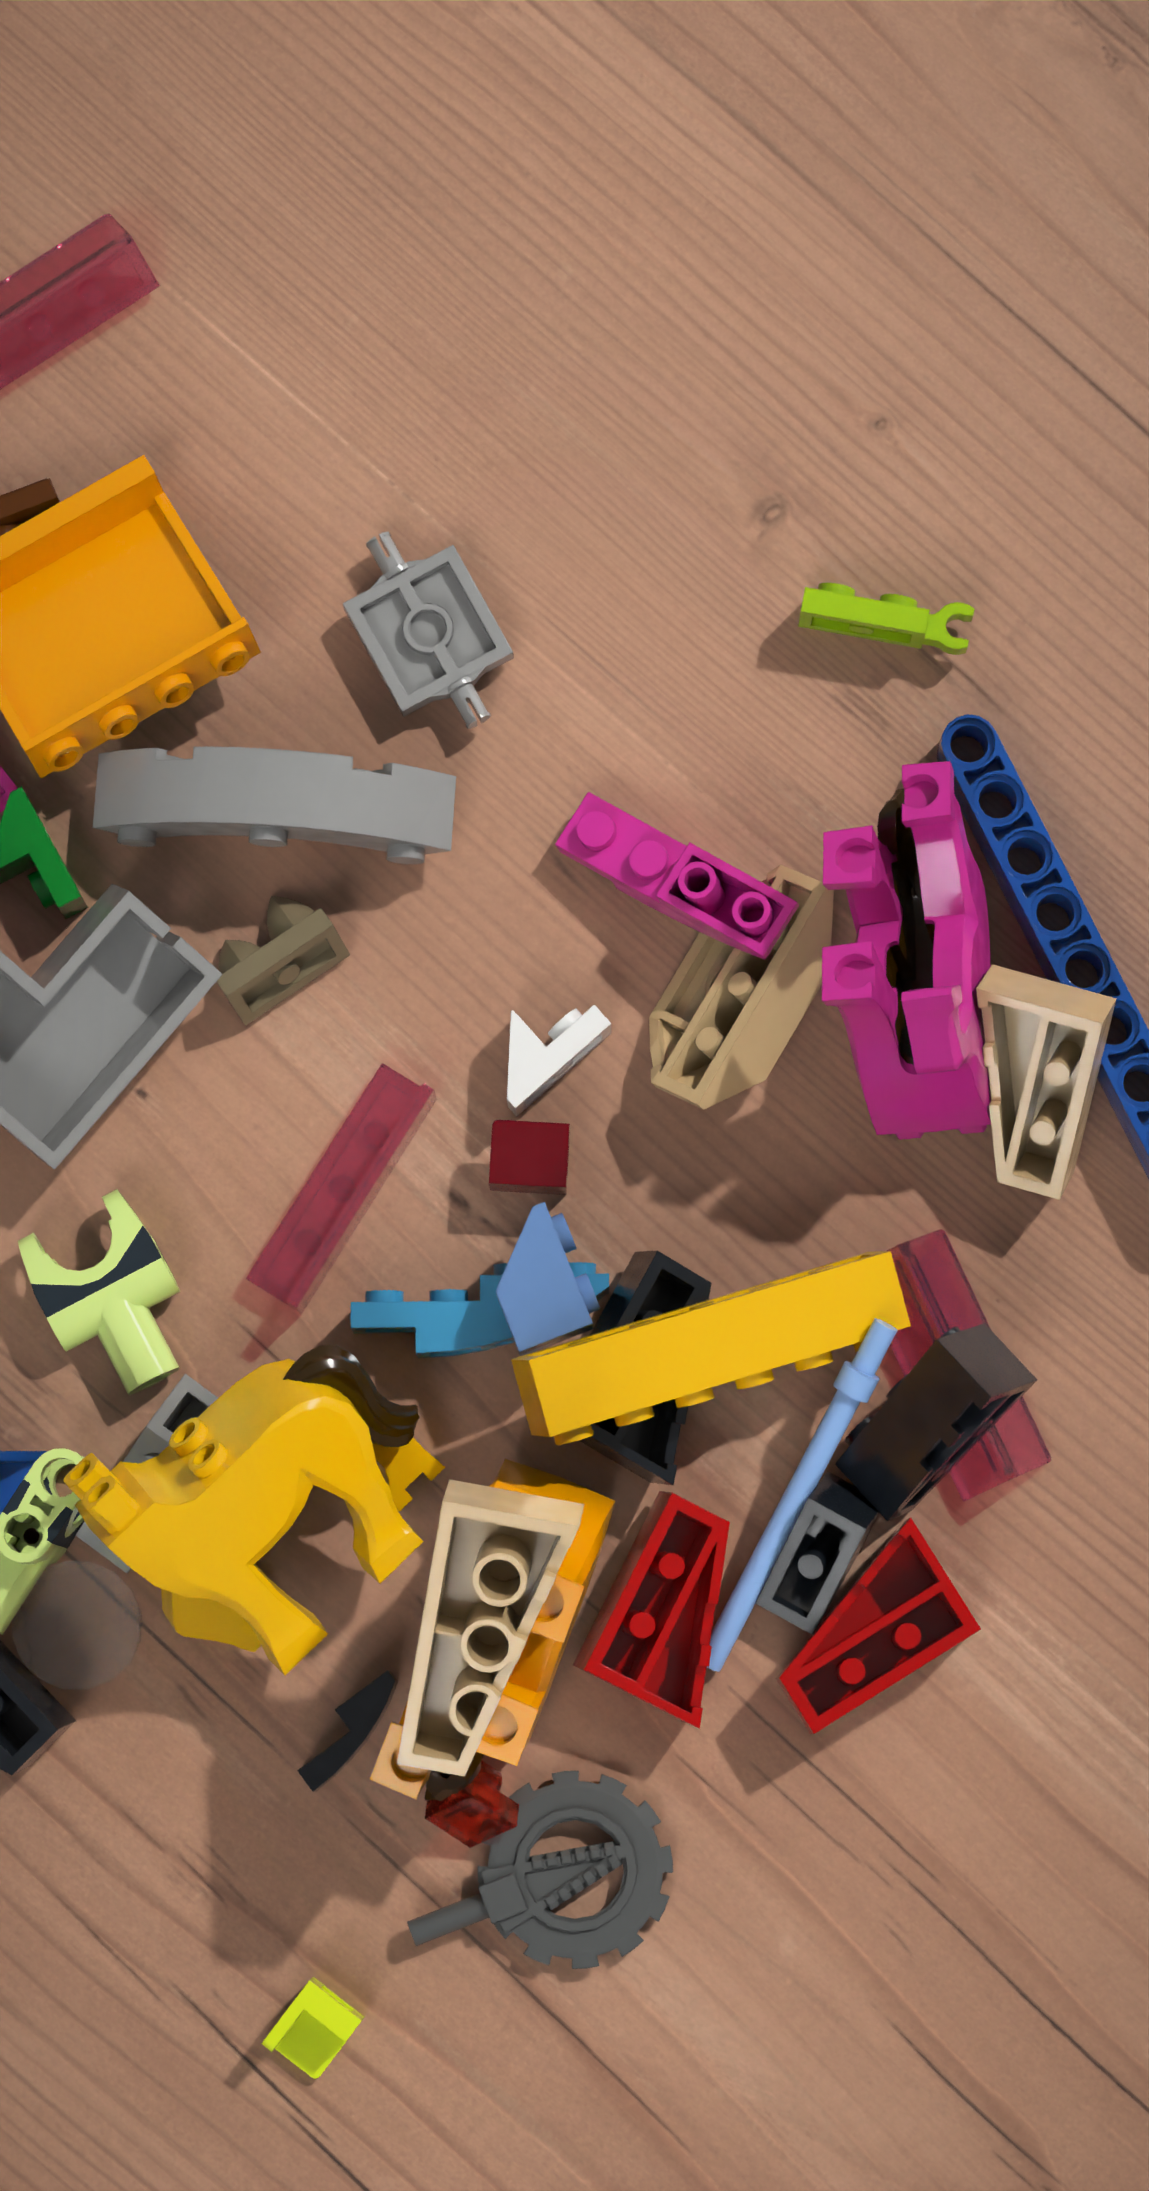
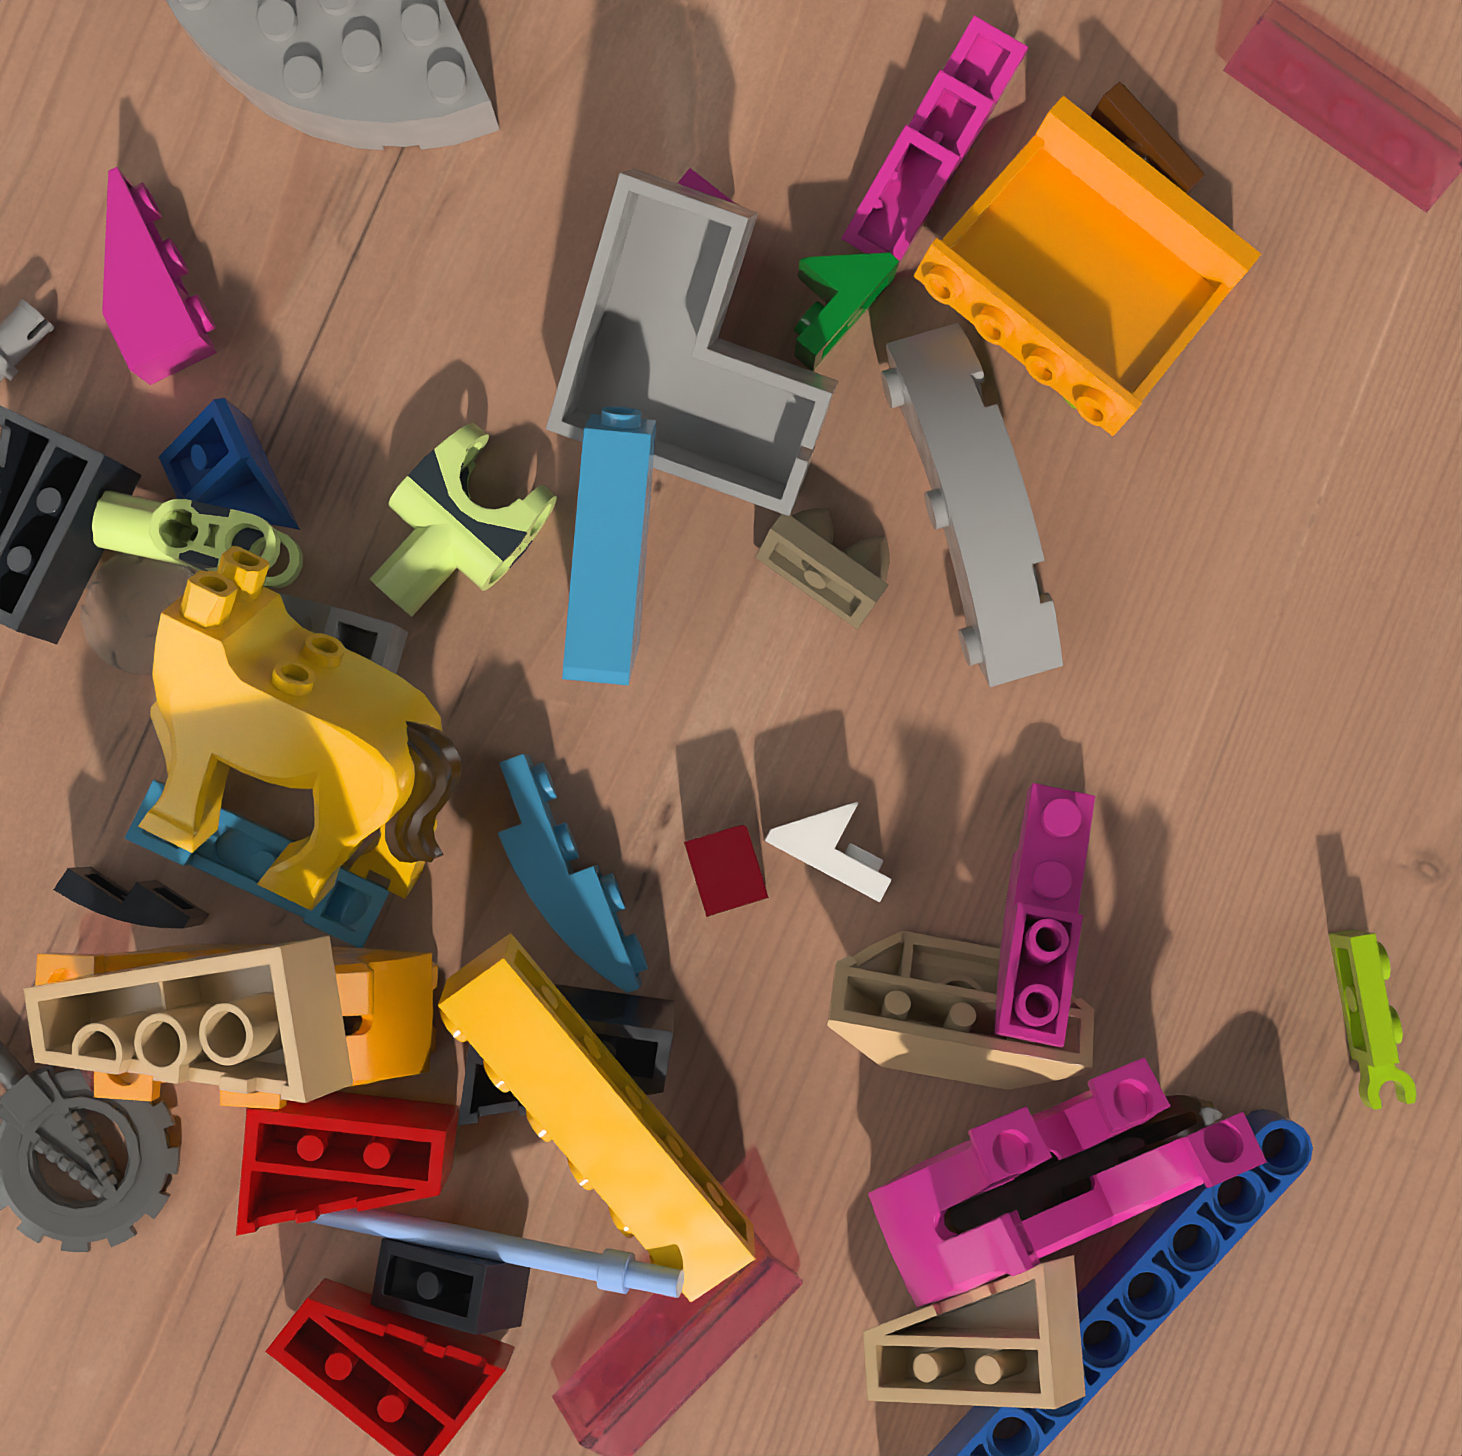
camera: 65 degrees right, 5 degrees up
(190, 1146) = (610, 547): none -> dark azure slope
(342, 1188) = (647, 708): clear pink panel -> none
(356, 1604) = (244, 852): none -> dark azure slope
(428, 630) = (1193, 587): light grey plate -> none
(539, 1289) = (594, 931): medium blue slope -> none
(933, 1418) = (610, 1359): black wedge -> none

